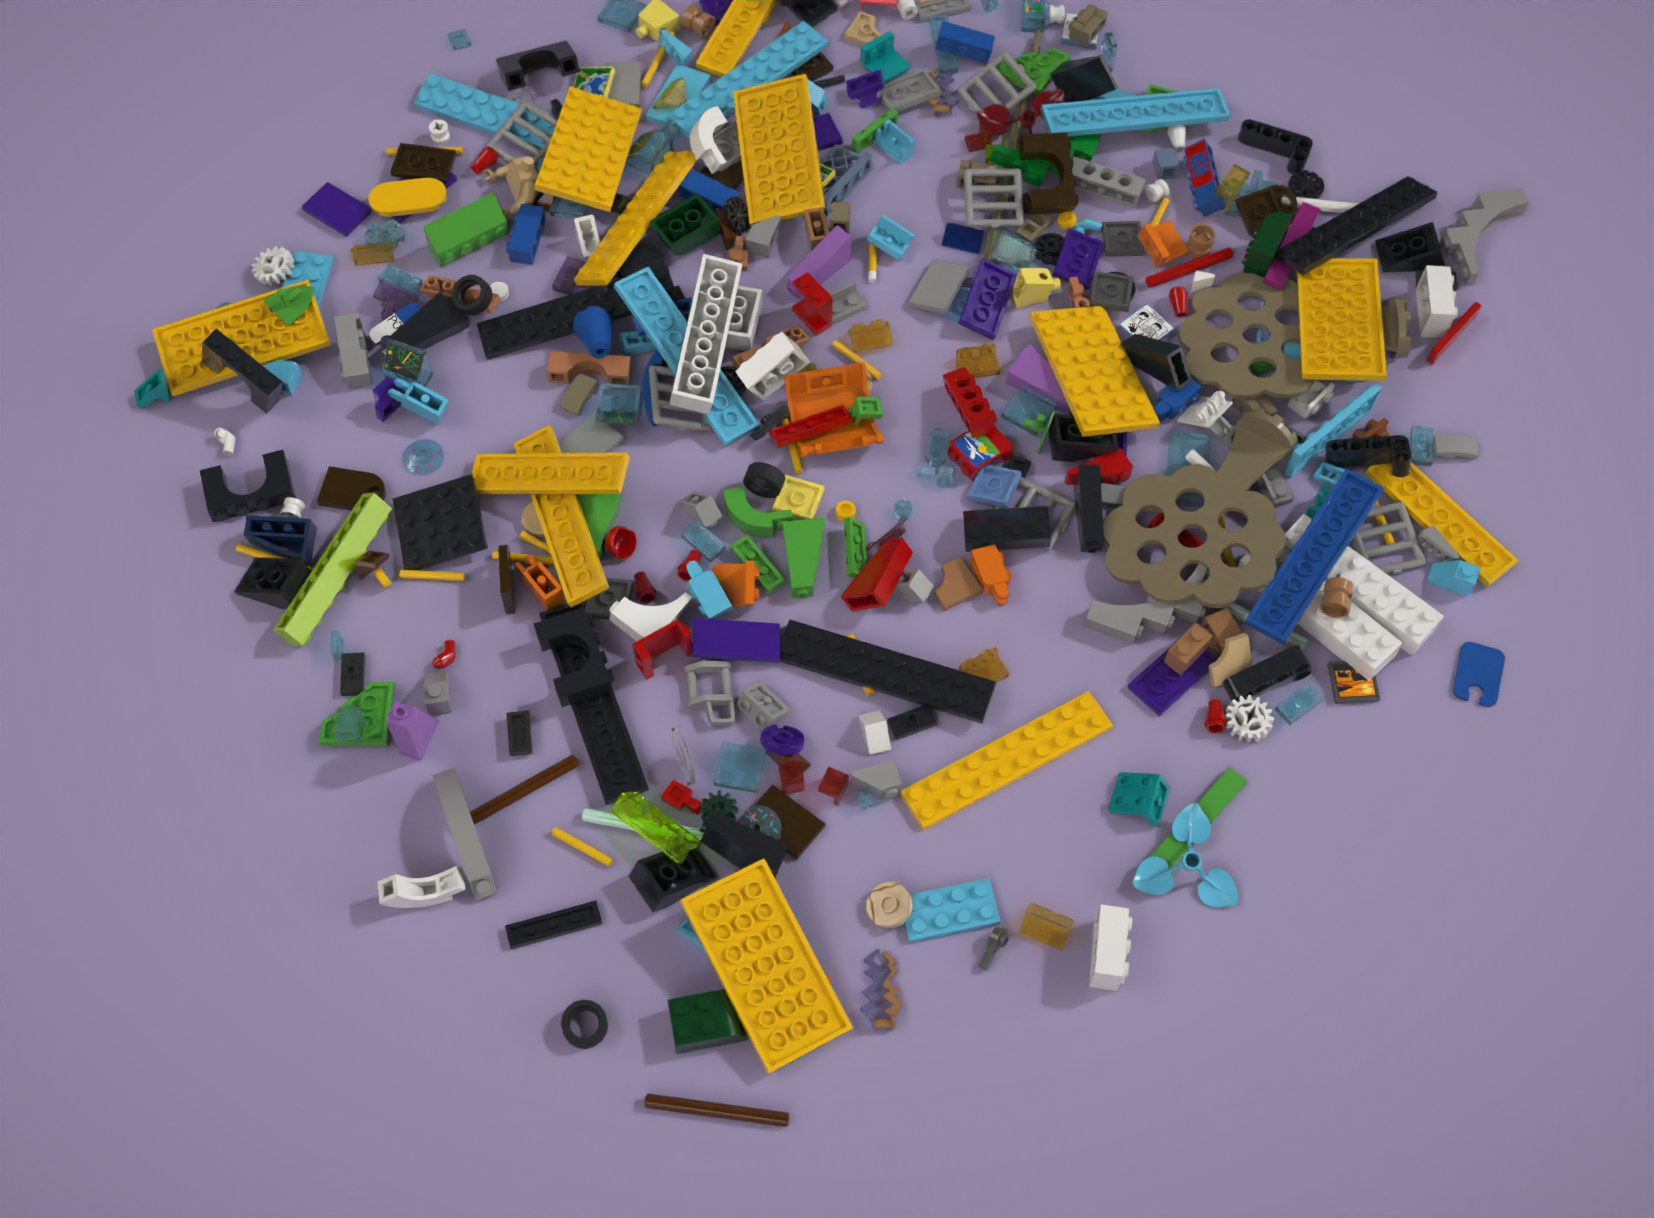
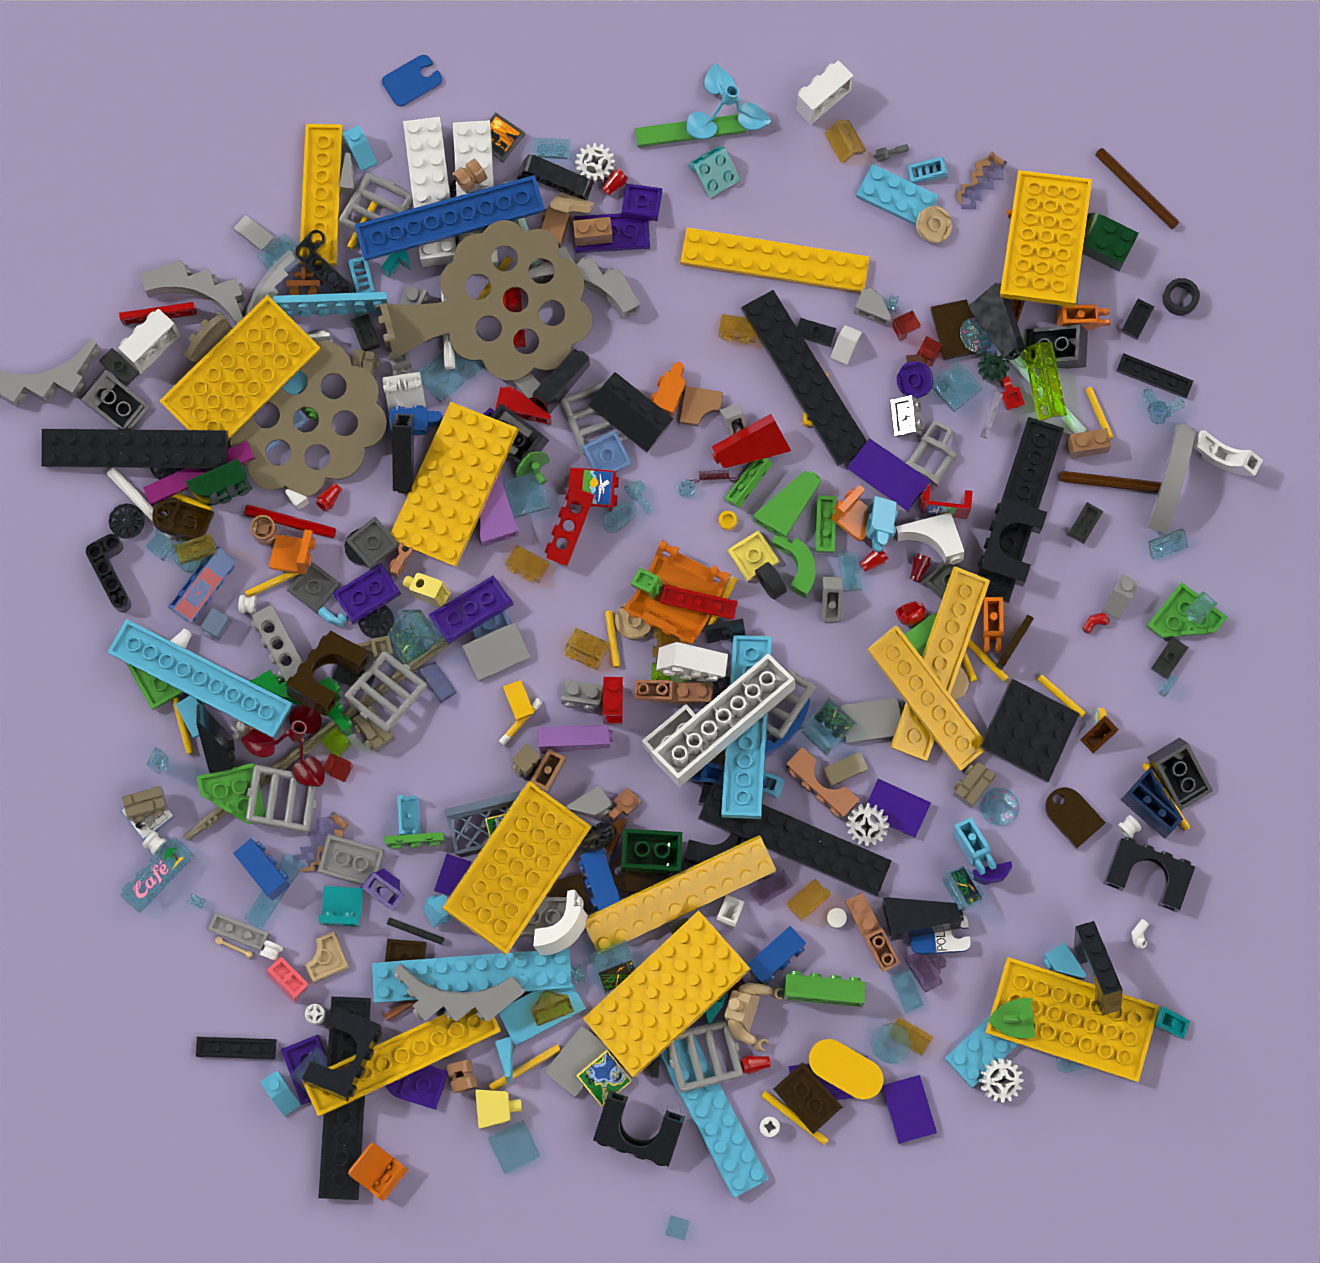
camera: 140 degrees left, 15 degrees up
(332, 570) = (1132, 747): lime brick -> none
(353, 351) = (994, 937): light grey wedge -> none
(411, 729) = (1161, 567): medium lavender slope -> none
(427, 764) = (1168, 544): none -> clear light blue plate
(457, 452) = (974, 784): none -> dark tan brick
(483, 300) = (883, 909): black tyre -> none
(512, 396) = (903, 809): none -> dark purple tile
(517, 895) = (1158, 405): none -> clear light blue axle
(525, 362) = (875, 824): none -> white gear
(530, 287) = (808, 899): none -> clear yellow panel
(569, 804) = (1089, 443): none -> medium nougat brick
(594, 330) = (800, 799): blue cone -> none
(612, 967) = (1137, 318): none -> black plate
(664, 920) = (1083, 314): none -> orange hinge
(762, 37) = (457, 1004): none -> light grey arch
(890, 237) = (497, 721): medium azure bracket -> none
(892, 269) = (518, 700): none -> yellow slope
(933, 972) = (926, 164): none -> medium azure slope
(1020, 464) = (575, 458): black tile -> none
(1066, 220) = (343, 631): yellow tile -> none
(1146, 323) = (373, 497): tile -> none
(1173, 716) = (641, 202): none -> dark purple tile
(1397, 412) = (270, 280): none -> light grey slope
(1443, 377) = (178, 279): none -> light grey arch

